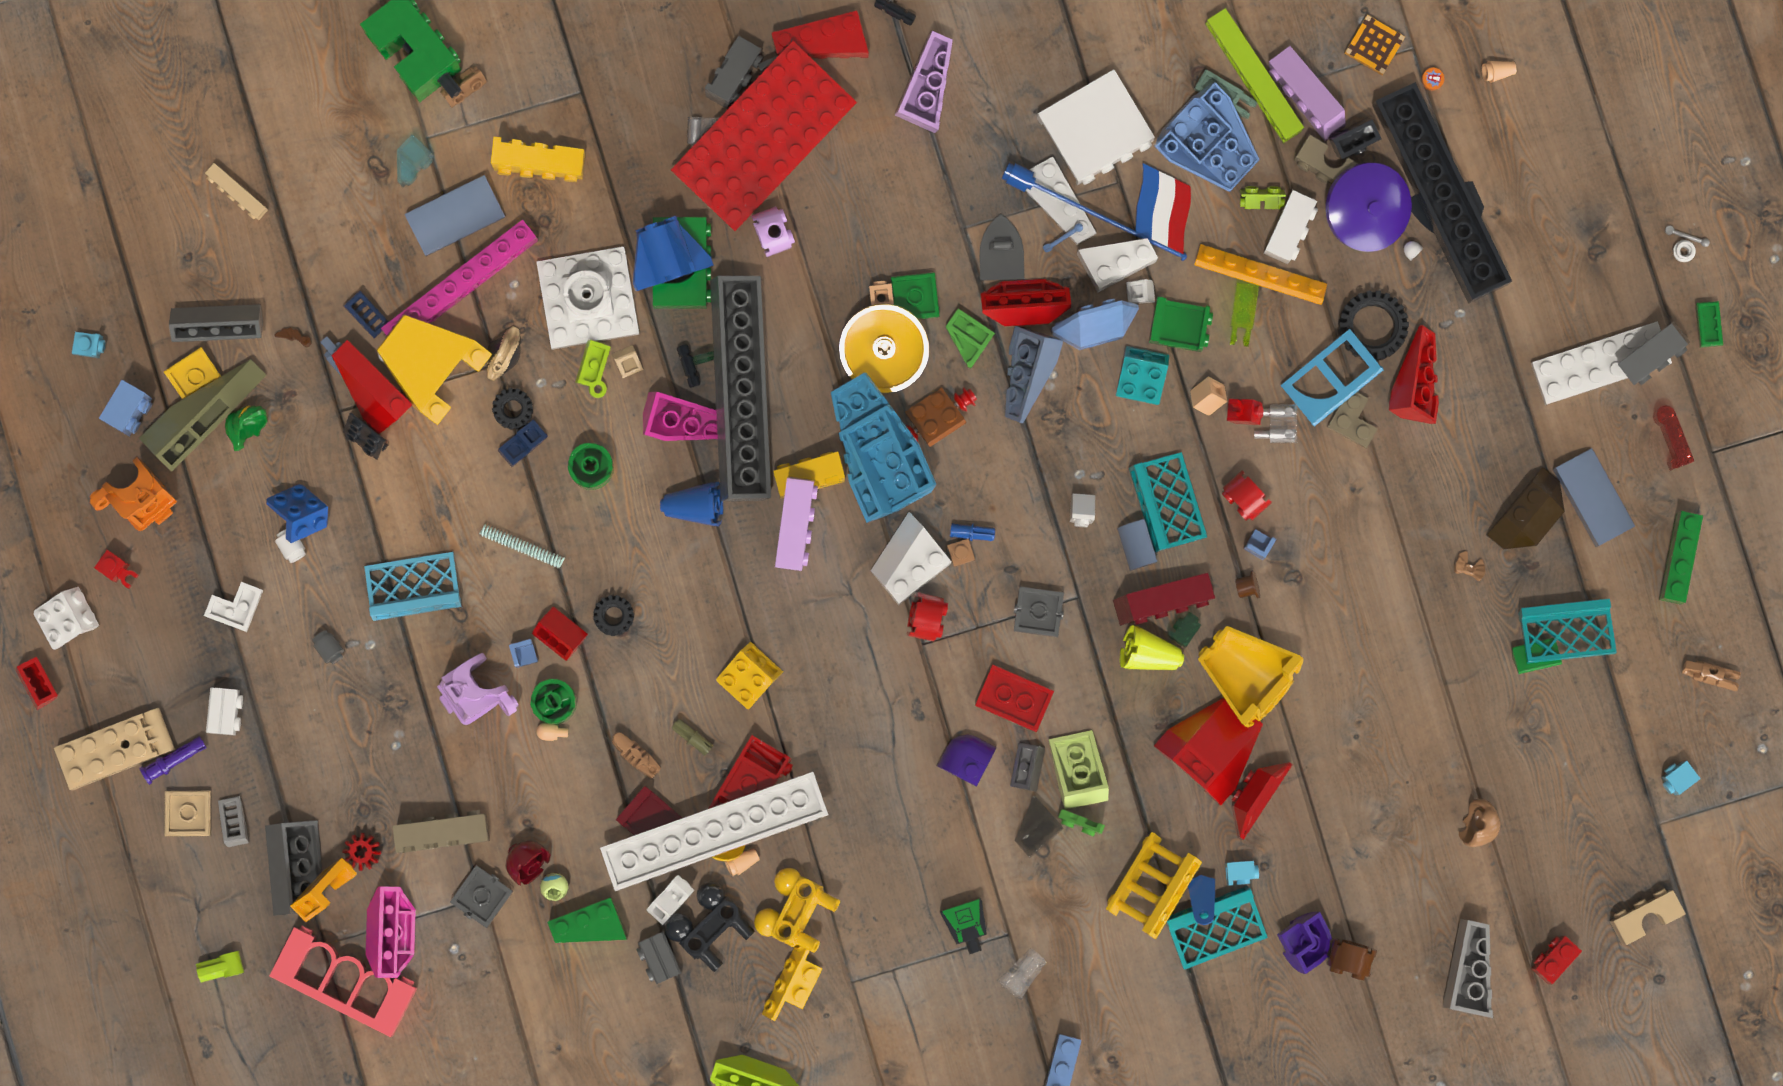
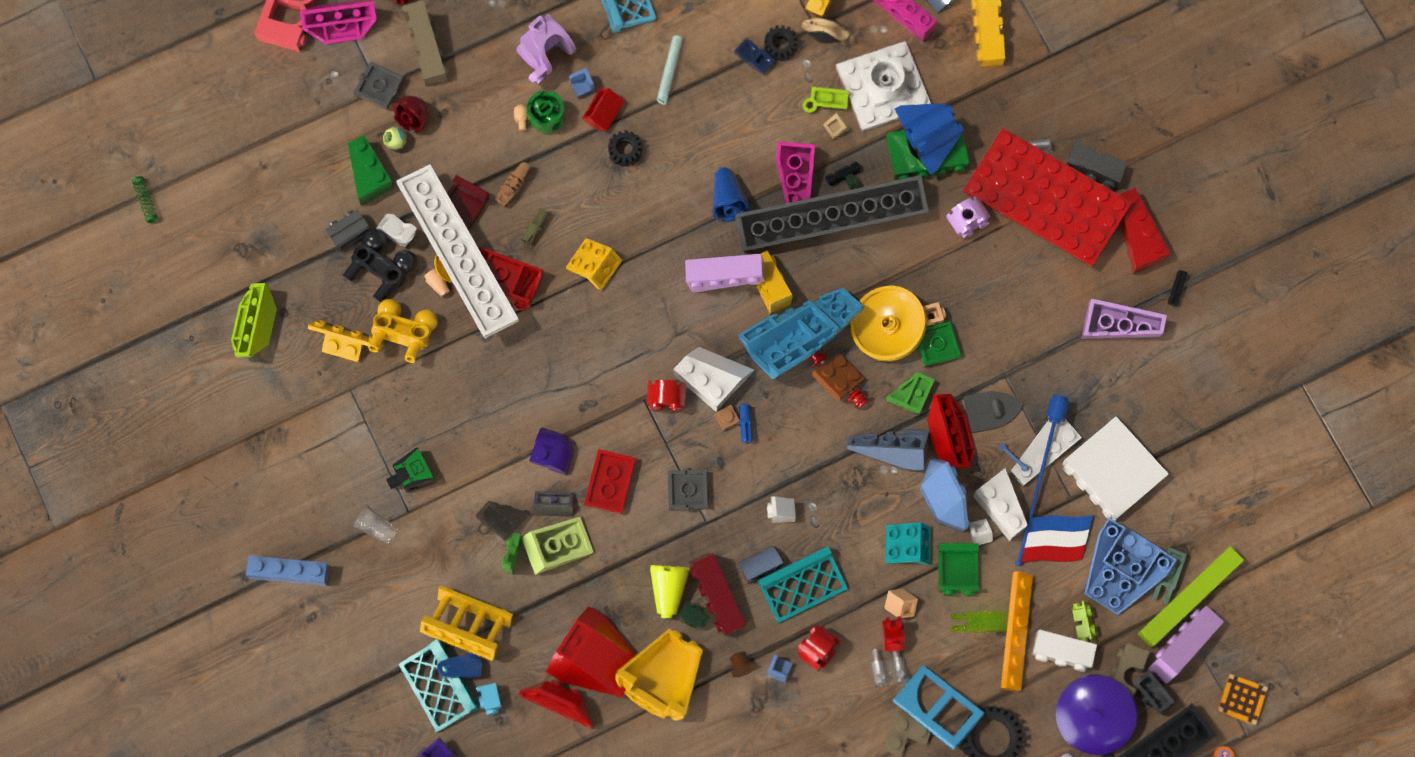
camera: 90 degrees right, 10 degrees down
(578, 463) = (744, 118): green brick -> none

